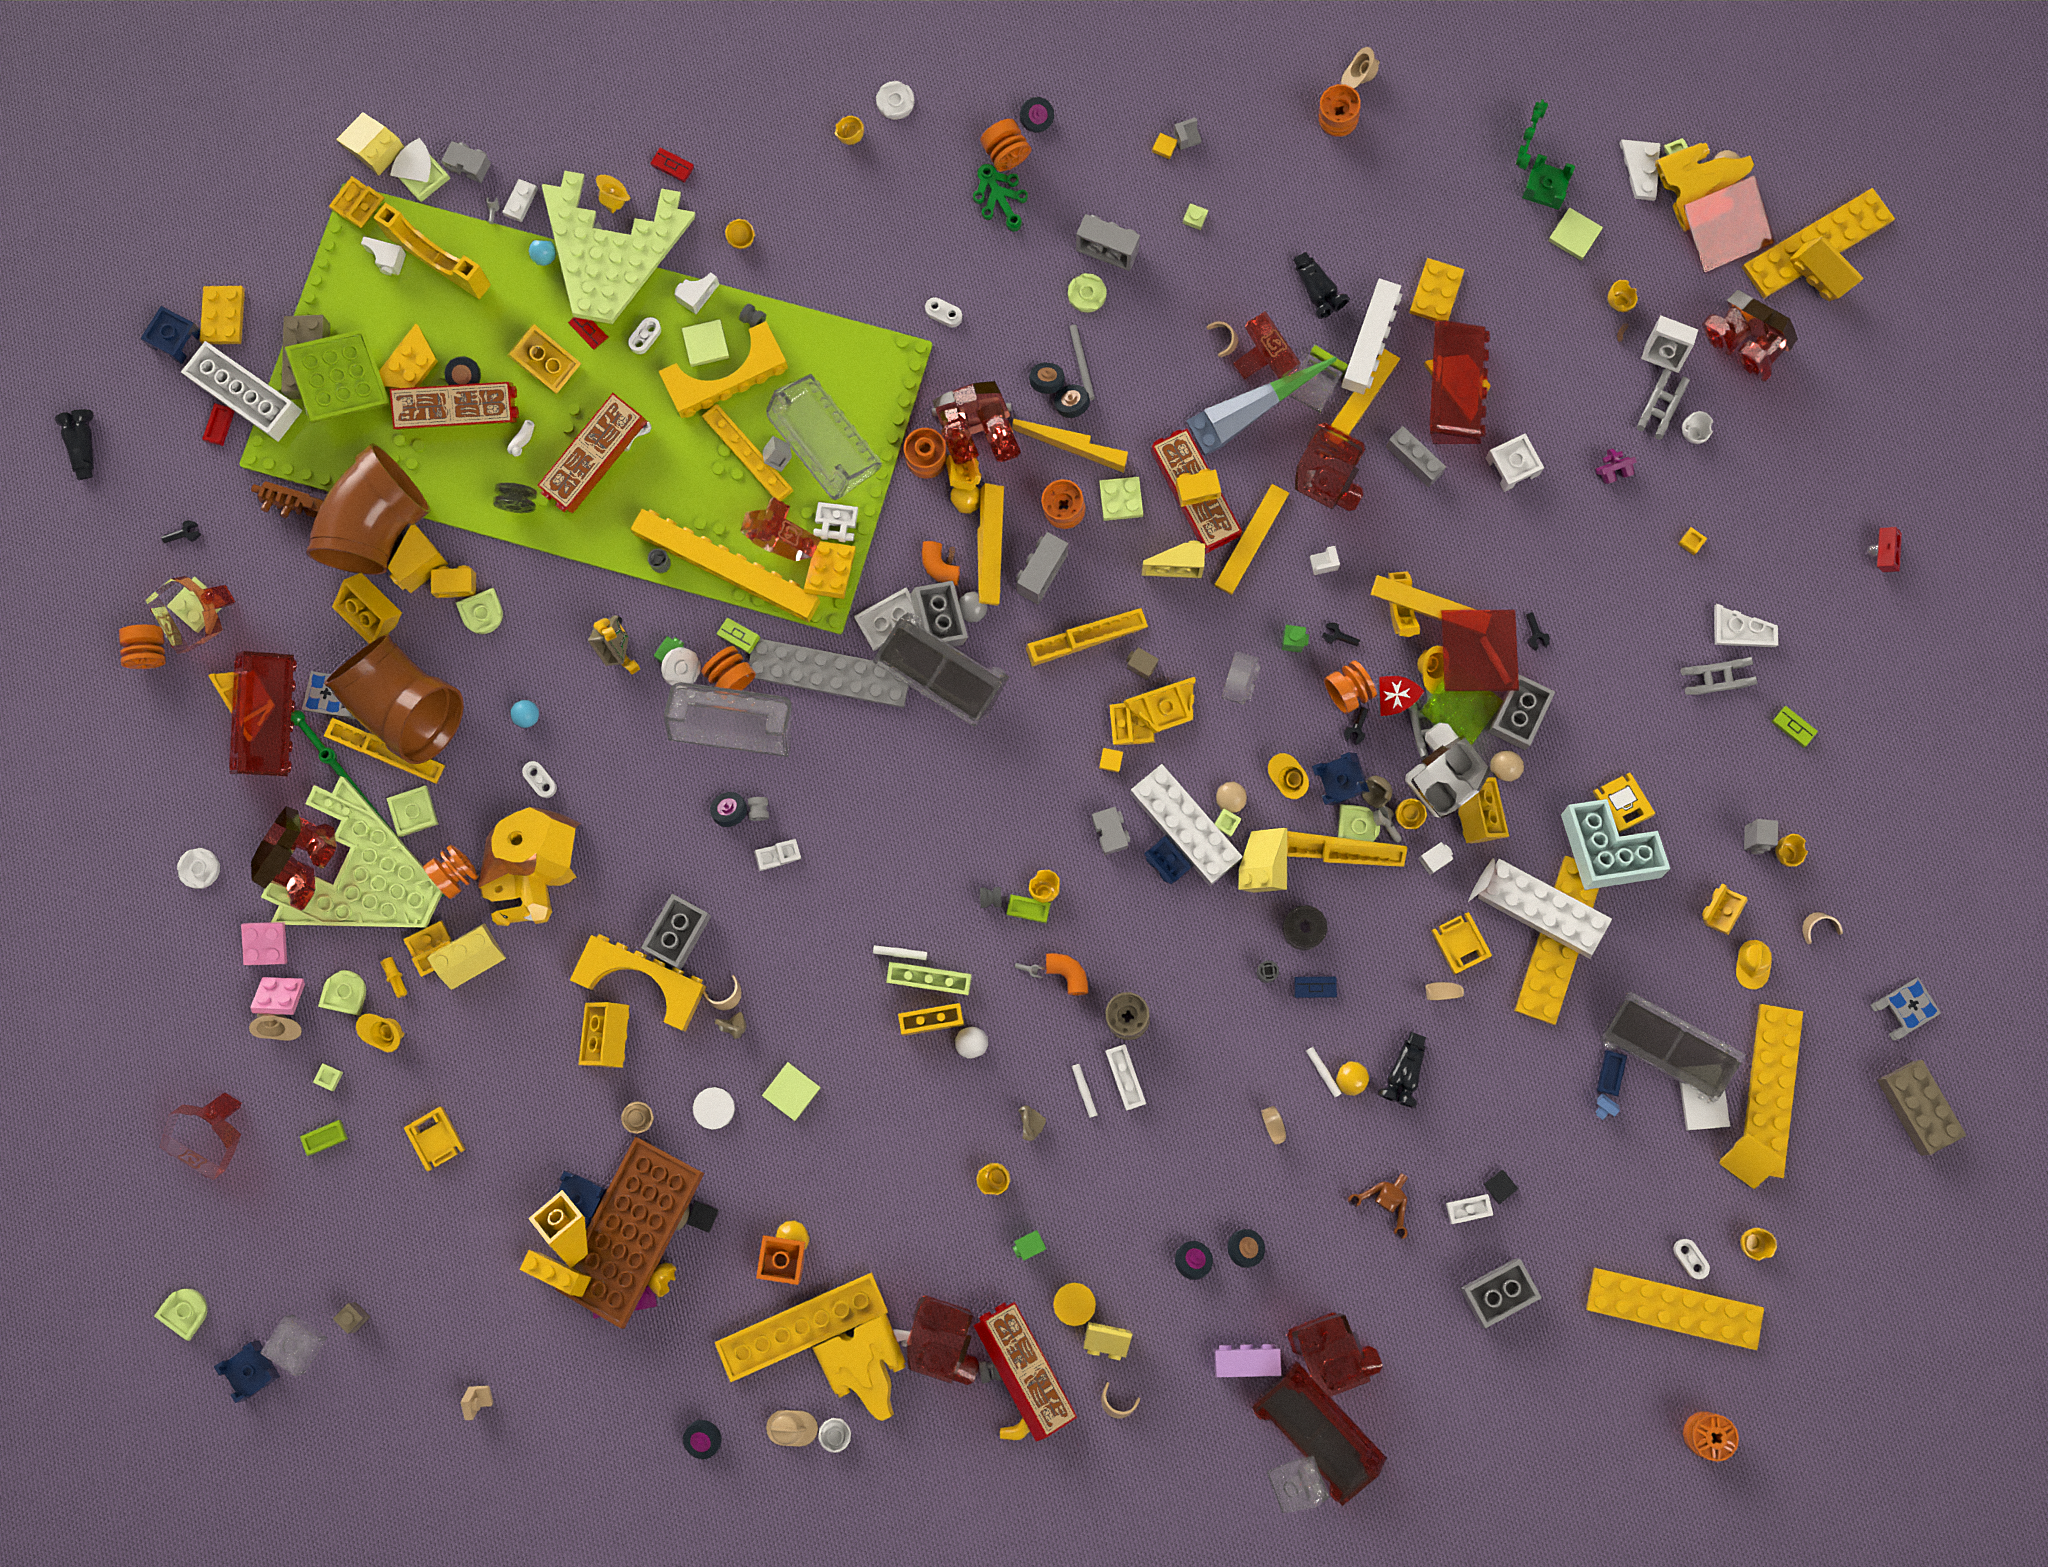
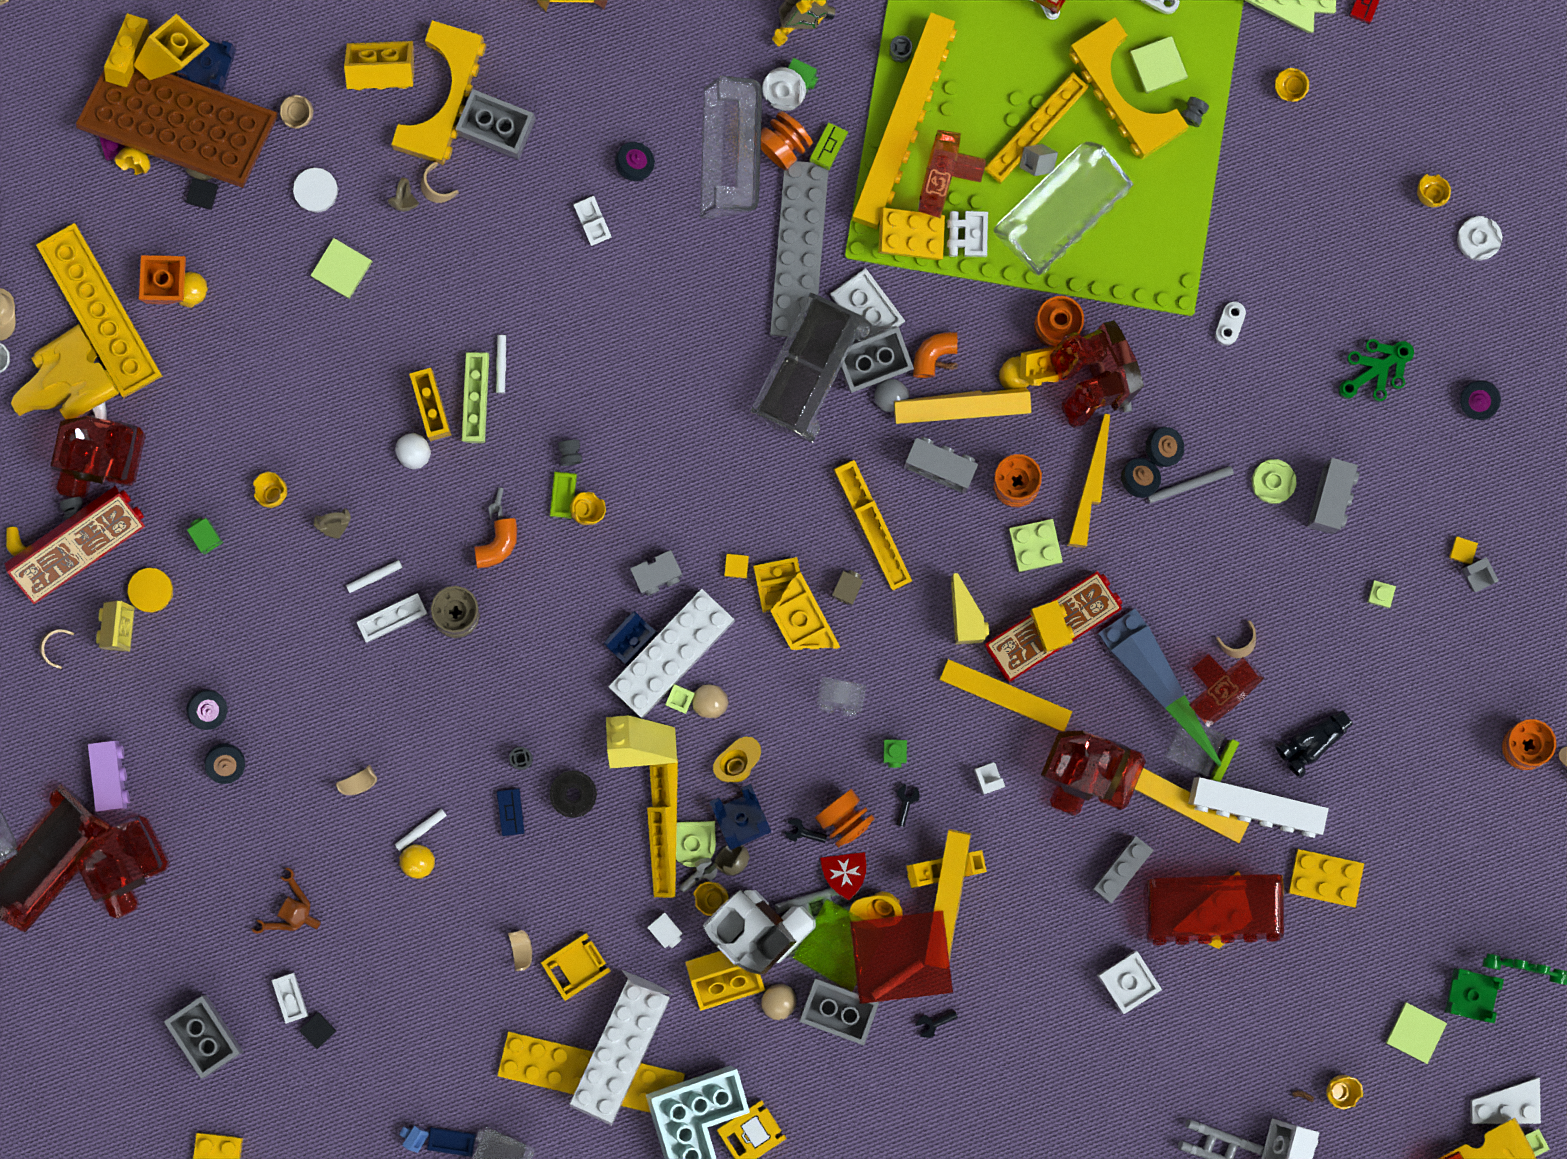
camera: 75 degrees right, 5 degrees up
(695, 293) = (1214, 47): white arch -> none
(758, 808) = (639, 193): light grey wheel -> none
(1005, 144) = (1436, 367): orange wheel -> none
(1406, 1072) = (428, 917): black piece -> none
(1608, 471) = (1140, 1094): magenta hips -> none

